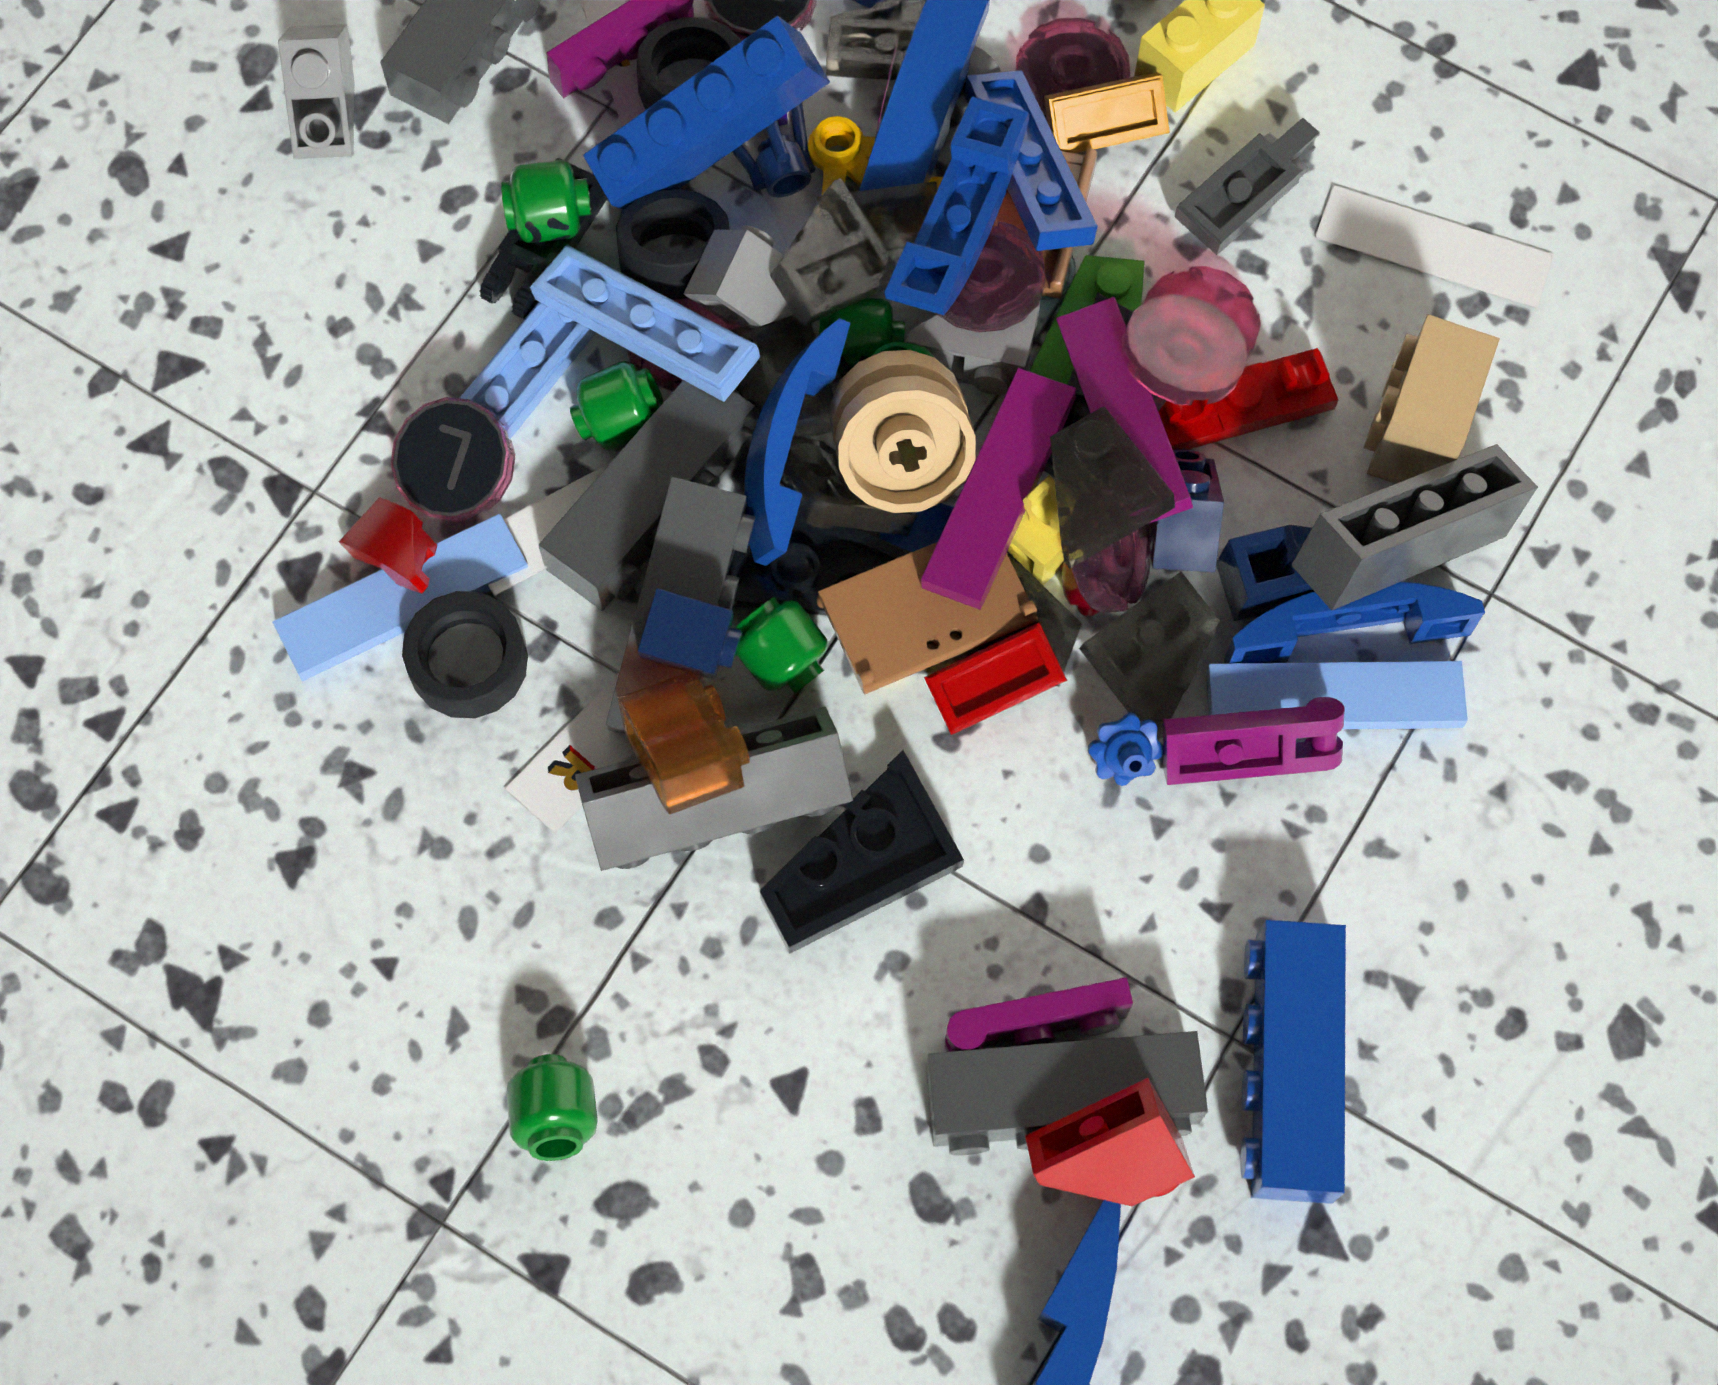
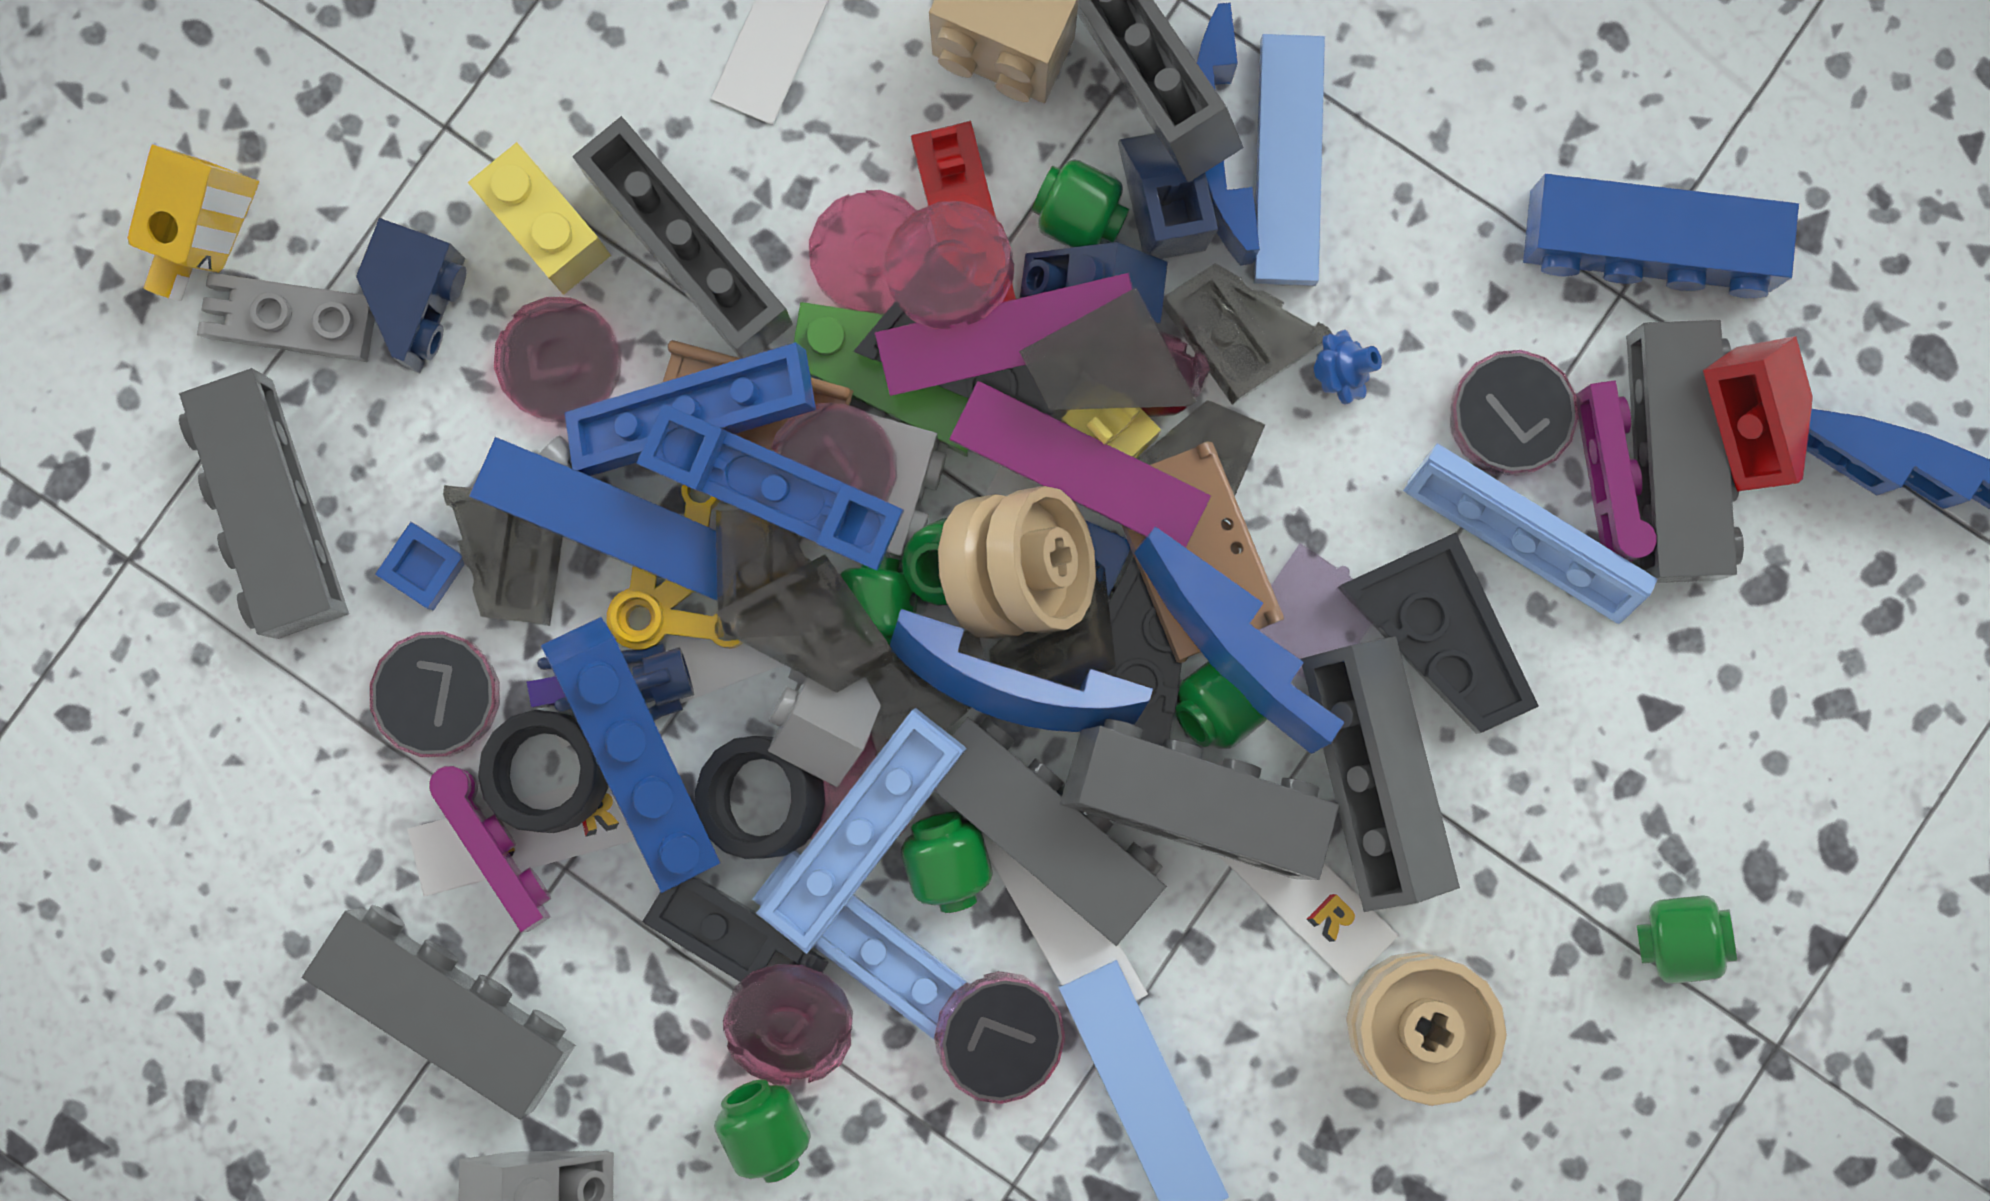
camera: 85 degrees left, 15 degrees up
(368, 264) = (762, 1131): none -> green head
(393, 541) = (1094, 1101): red slope -> none
(449, 612) = (1262, 1046): black tyre -> none
(460, 840) = (1464, 1033): none -> tan wheel
(465, 279) = (788, 1024): none -> clear pink tile
(545, 201) = (711, 935): green head -> none
(683, 741) = (1366, 799): clear orange brick -> none
(689, 635) = (1252, 790): dark blue brick -> none
(850, 615) = (1218, 621): none -> slope
(877, 729) = (1313, 607): none -> clear purple piece
(886, 88) = (589, 557): sticker -> none
(965, 935) = (1530, 534): none -> light blue tile
(995, 678) = (1268, 487): red tile -> none
(1094, 923) = (1513, 413): none -> black tile
(1108, 113) = (621, 325): tile -> none
(1182, 152) = (683, 239): none -> dark grey brick
(1247, 186) = (719, 184): dark grey hinge -> none
(1253, 743) = (1344, 242): magenta plate -> none
(1263, 490) = (1080, 205): none -> green head

